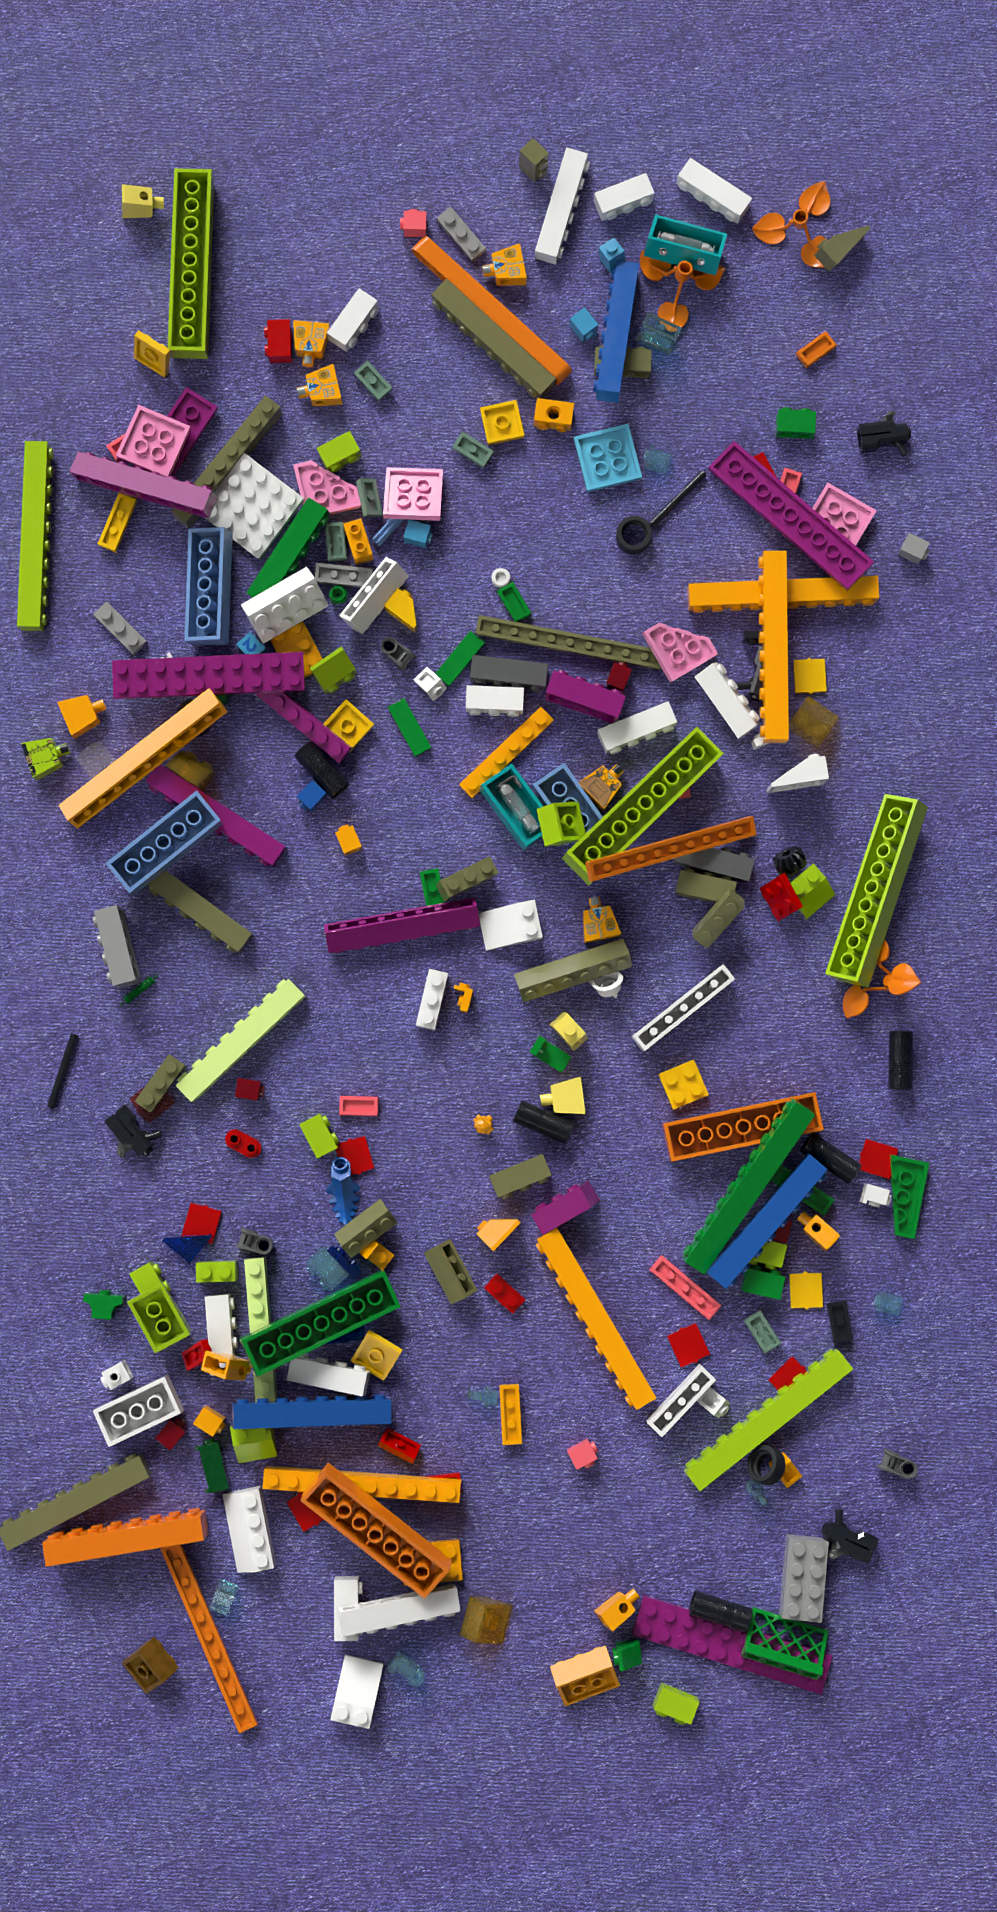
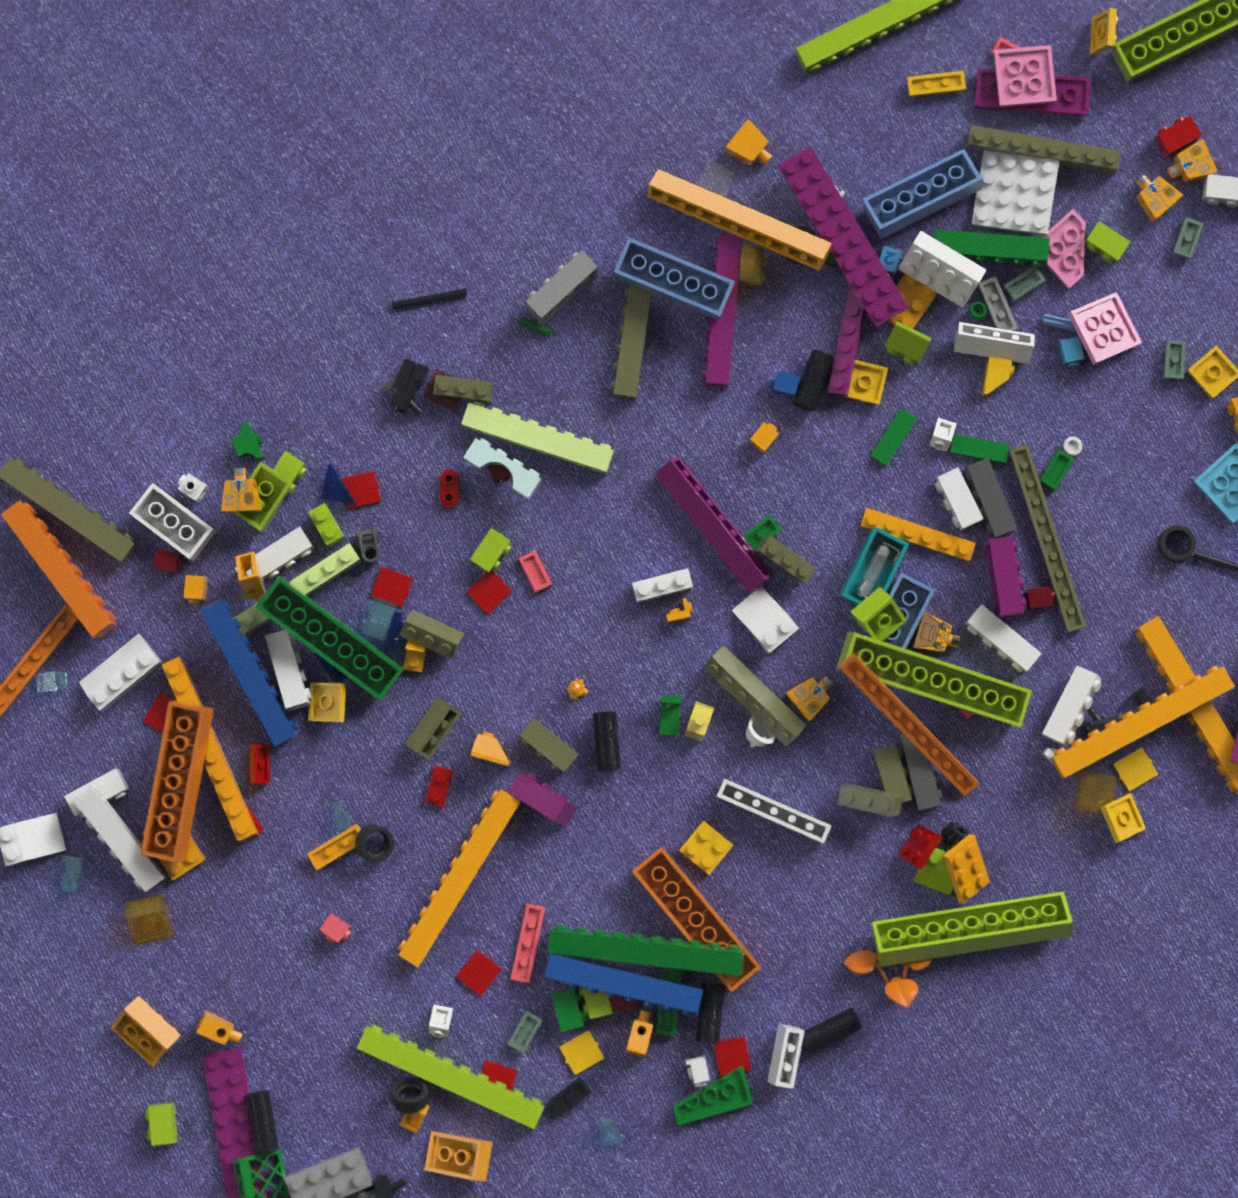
camera: 65 degrees right, 0 degrees up
(44, 756) = (694, 133): lime torso -> none
(120, 628) = (843, 137): light grey plate -> none
(143, 484) = (981, 88): brick -> none
(146, 1335) = (240, 493): none -> light orange torso
(194, 1355) = (244, 544): red plate -> none
(214, 1465) = (159, 612): dark green brick -> none
(230, 1098) = (482, 455): none -> light aqua arch
(253, 1444) = (196, 636): lime slope -> none
(303, 1241) = (392, 586): none -> red piece
(343, 1190) = (454, 597): blue plant -> none
(358, 541) = (1035, 303): light orange brick -> none
(369, 497) = (1080, 291): sand green plate -> none
(398, 654) = (953, 392): dark grey piece -> none
(537, 1372) = (385, 851): none -> black tyre
(565, 1097) = (639, 749): light yellow torso -> none
(627, 1654) = (183, 1058): green slope -> none
(678, 649) = (1093, 638): bright pink plate -> none
(680, 1400) = (427, 990): white brick -> none
(759, 1493) = (380, 1102): clear light blue piece -> none
(806, 774) = (1042, 810): white slope -> none
(822, 866) = (966, 868): none -> light orange plate
(841, 1449) = (458, 1156): none -> light orange slope
(847, 708) = (1123, 818): none -> yellow plate
(903, 1112) = (785, 1056): none -> white brick

